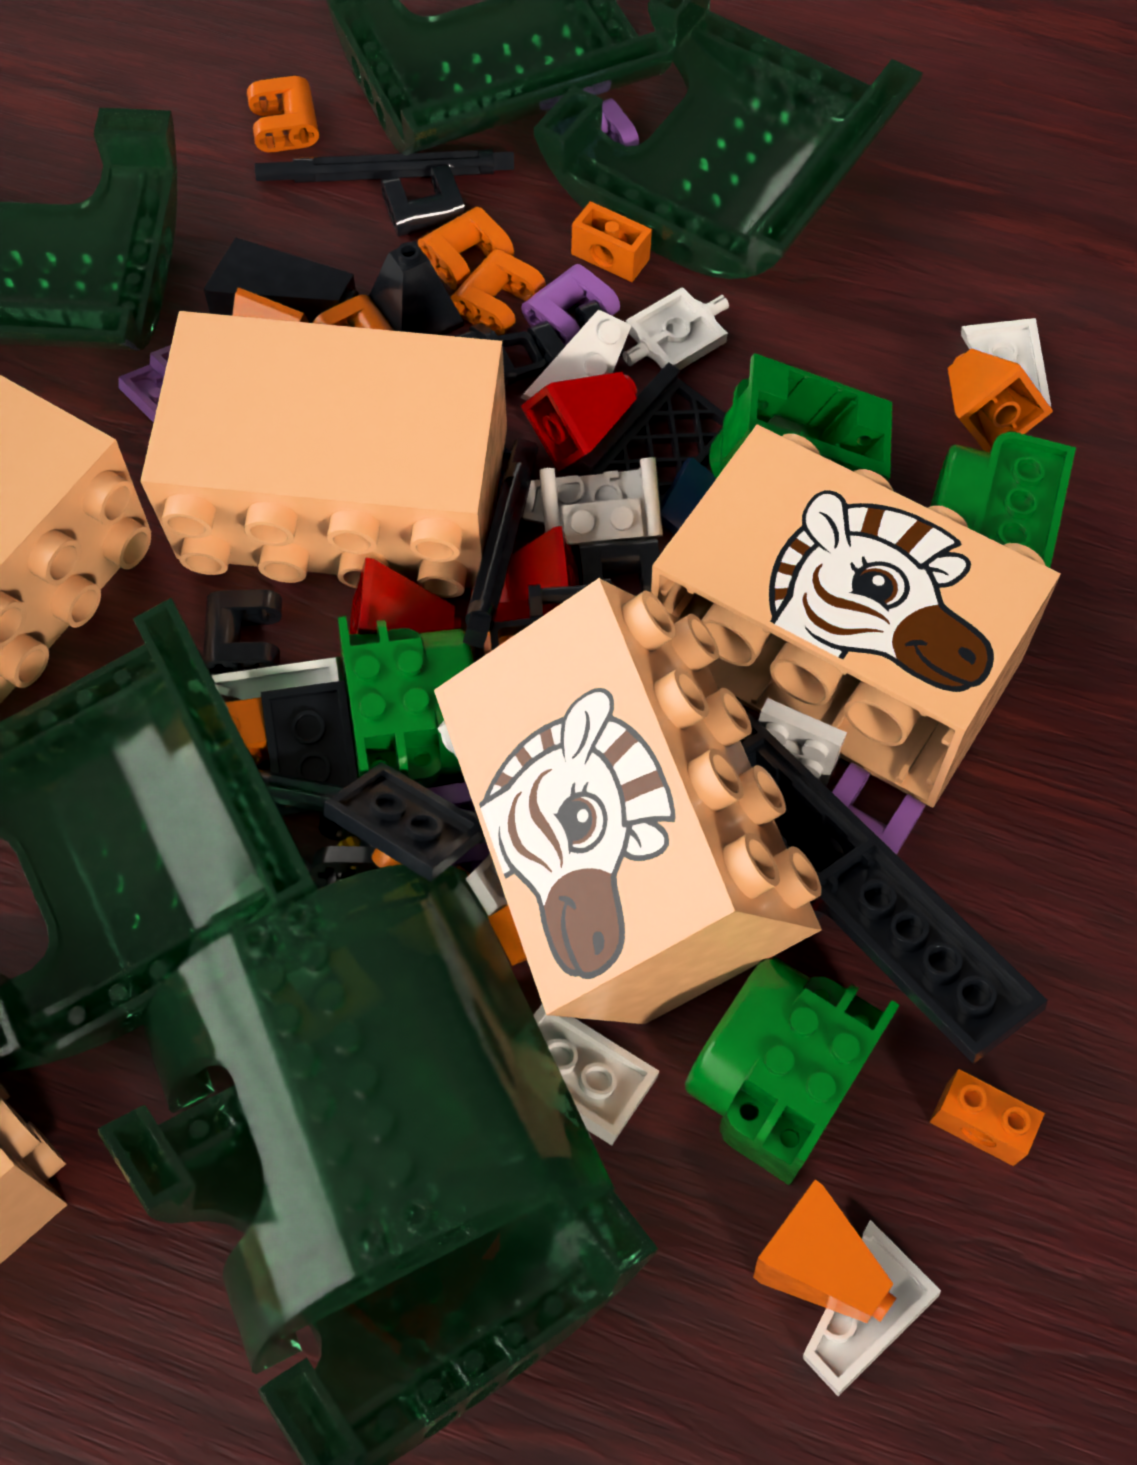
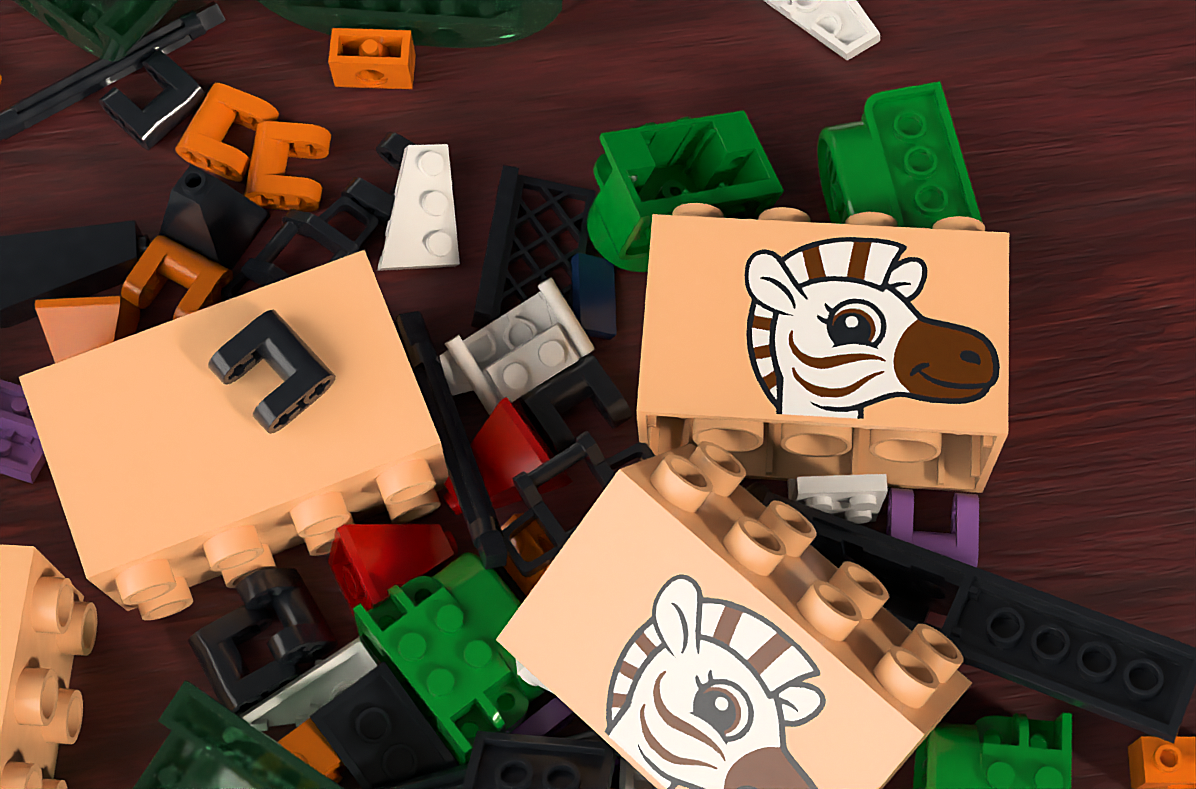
camera: 25 degrees left, 5 degrees up
(299, 633) = (305, 630): none -> black connector
(395, 403) = (289, 356): none -> black connector
(570, 288) = (351, 140): medium lavender connector -> none
(578, 413) = (452, 267): red slope -> none
(676, 330) = (486, 122): white plate -> none
(994, 397) = (825, 54): orange slope -> none

